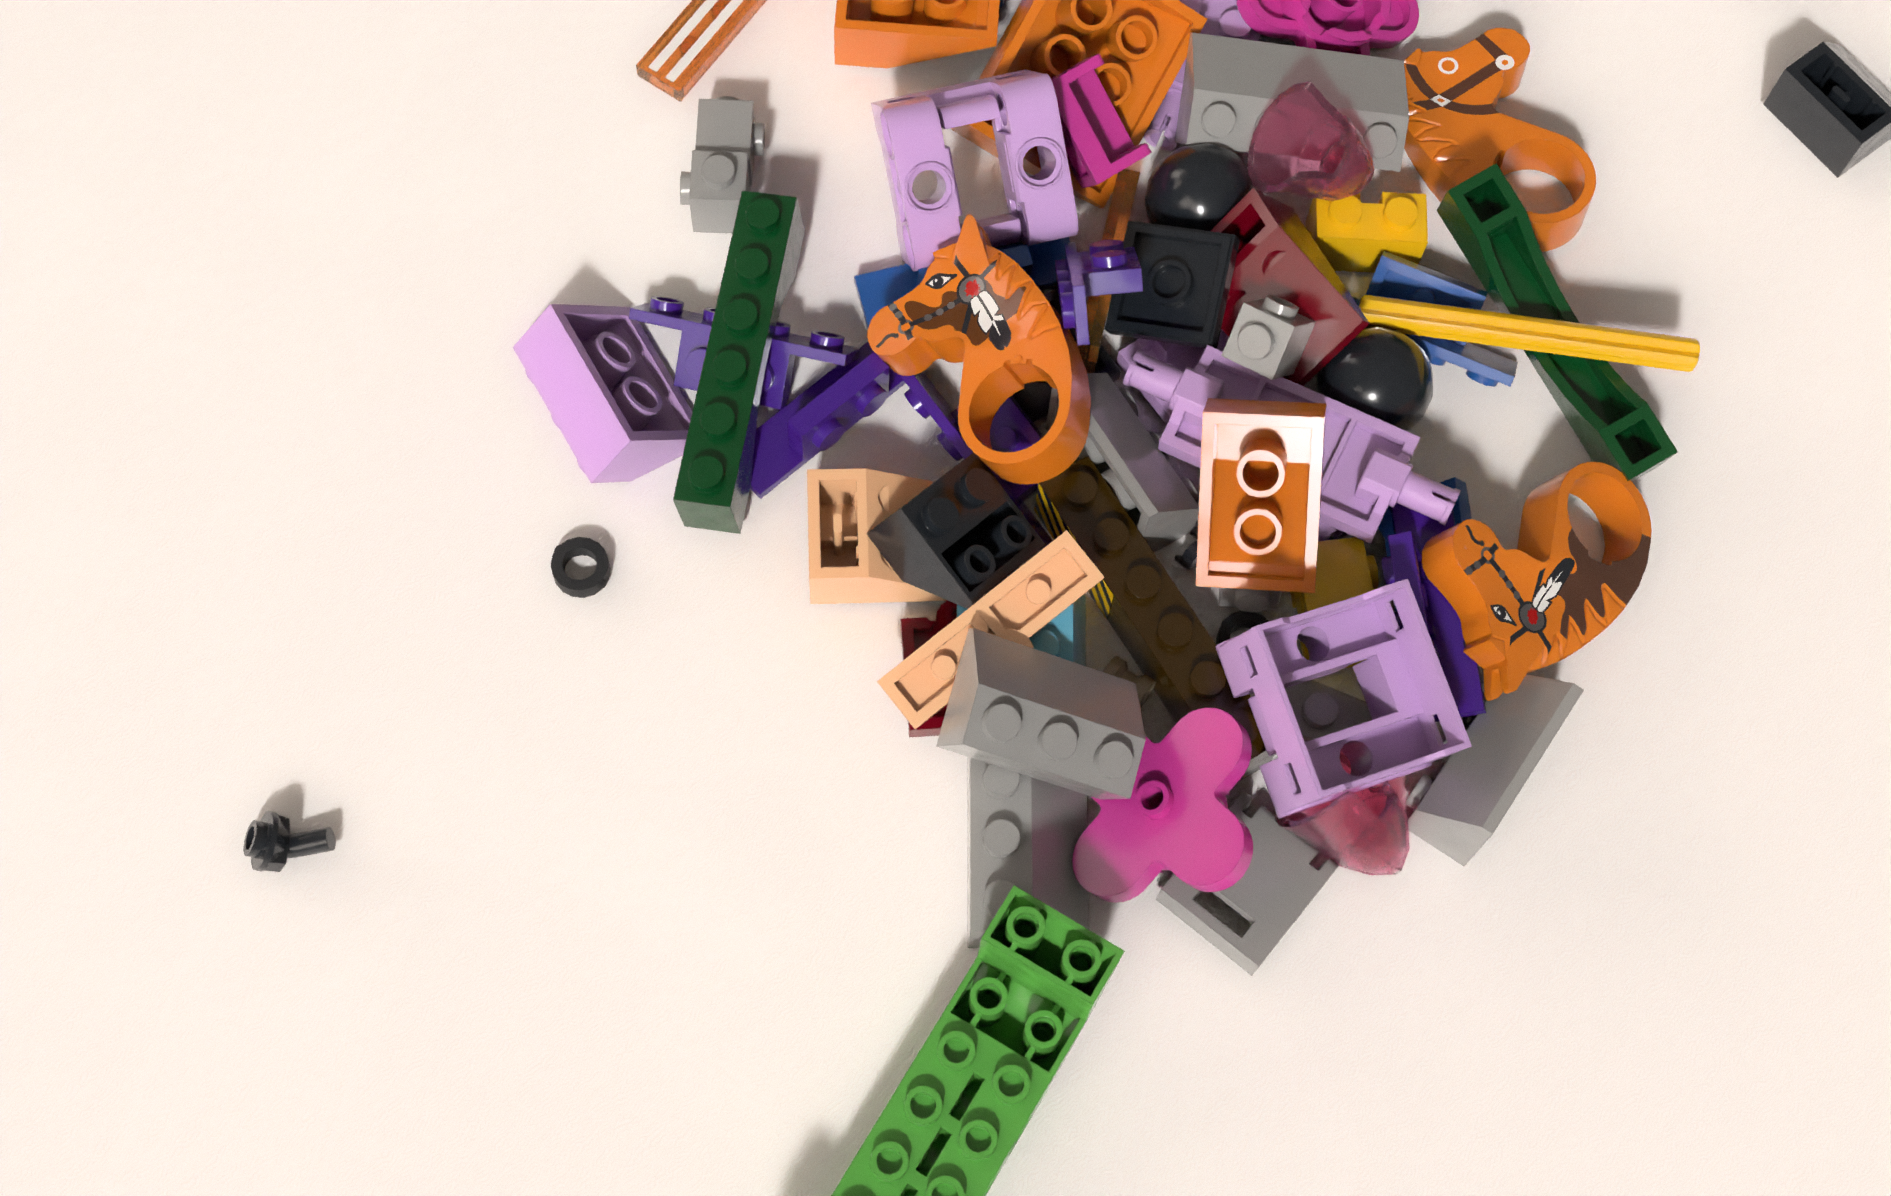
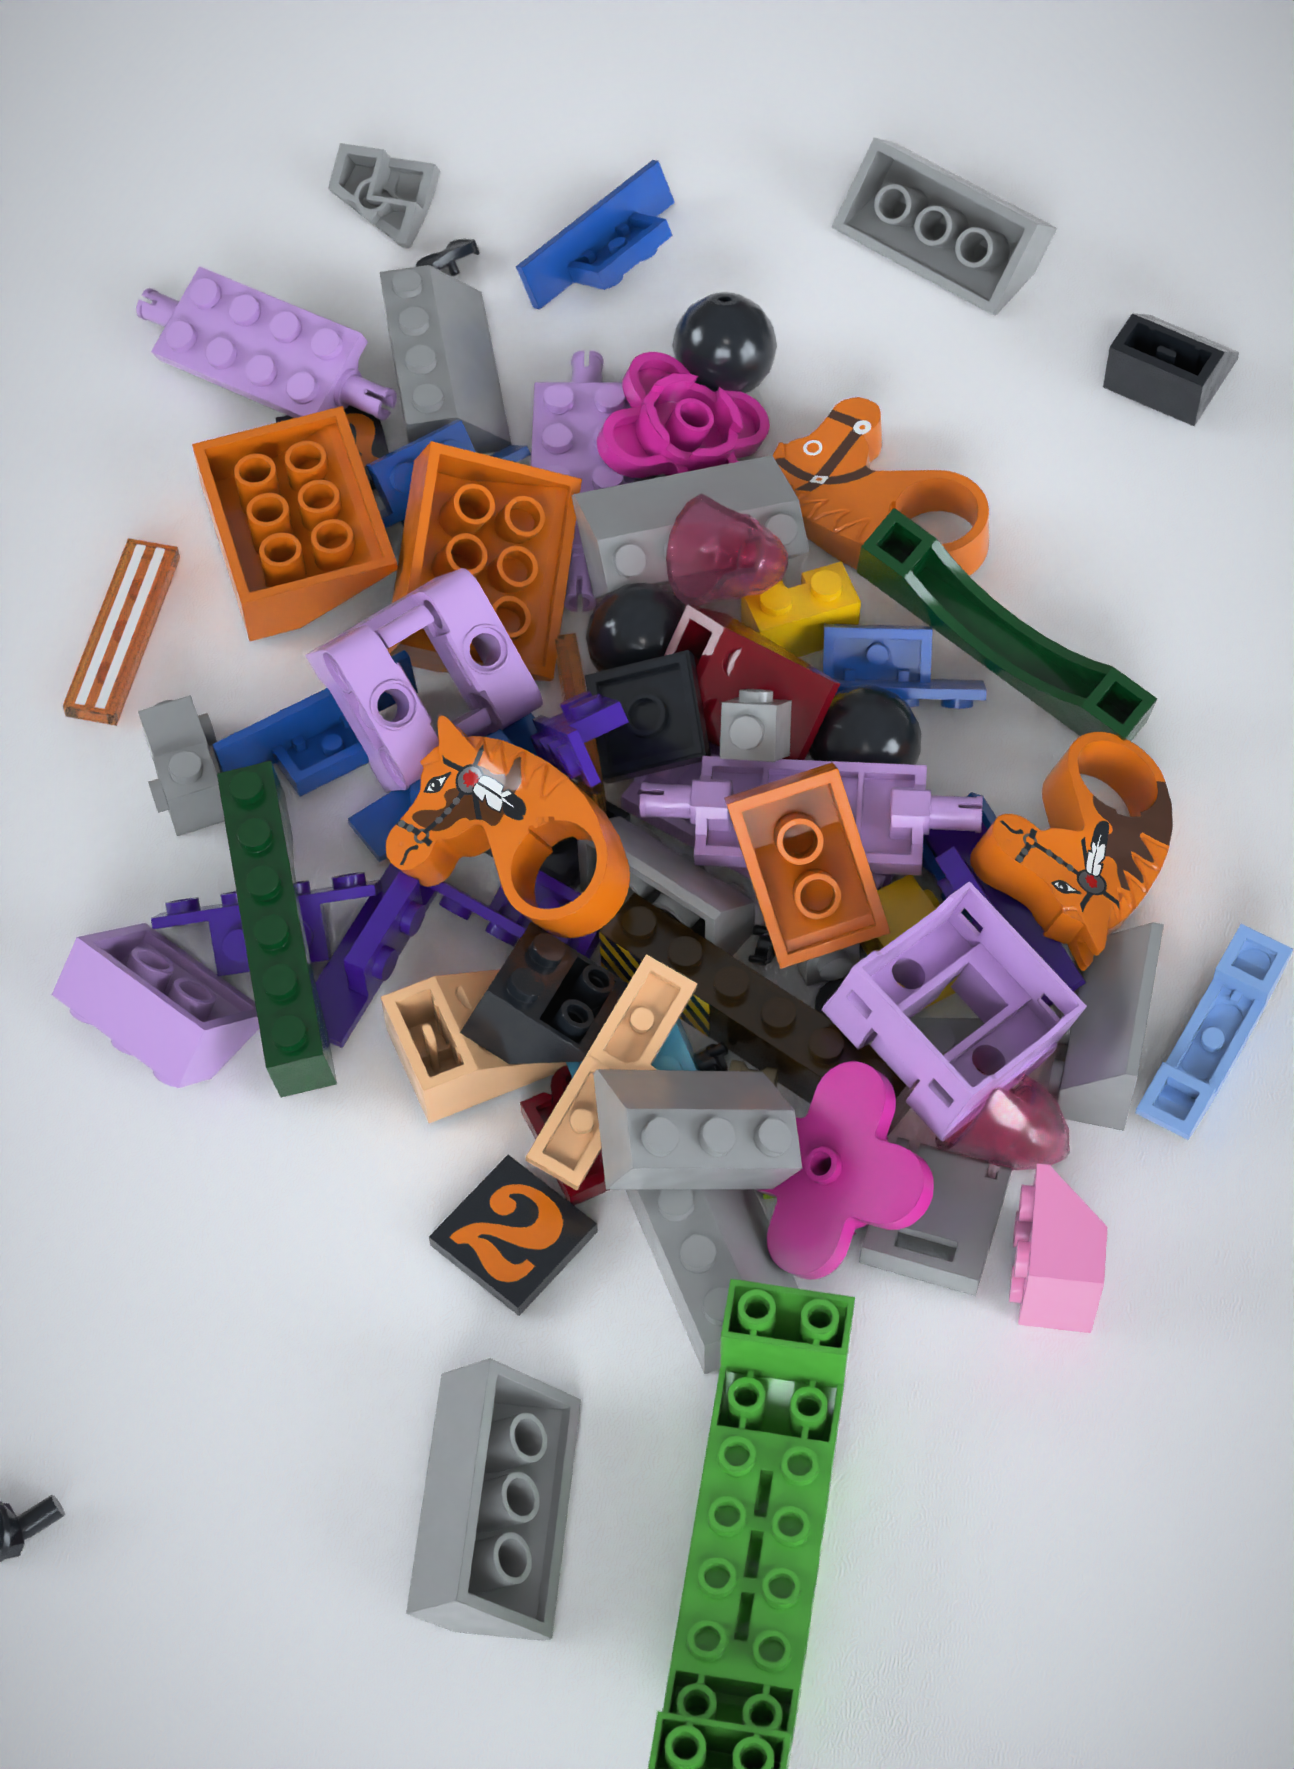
camera: 15 degrees left, 10 degrees down
(577, 547) = (192, 1152): black piece -> none
(721, 998) = (495, 1504): none -> light grey slope
(844, 743) = (513, 1234): none -> black tile
(848, 182) = (305, 740): none -> blue bracket
(1091, 127) = (522, 611): dark pink panel -> none
(1096, 647) = (712, 1057): none -> black piece
(1347, 978) = (1057, 1256): none -> bright pink slope
(1532, 333) = (987, 644): yellow axle -> none
(1593, 807) = (1215, 1032): none -> light blue slope

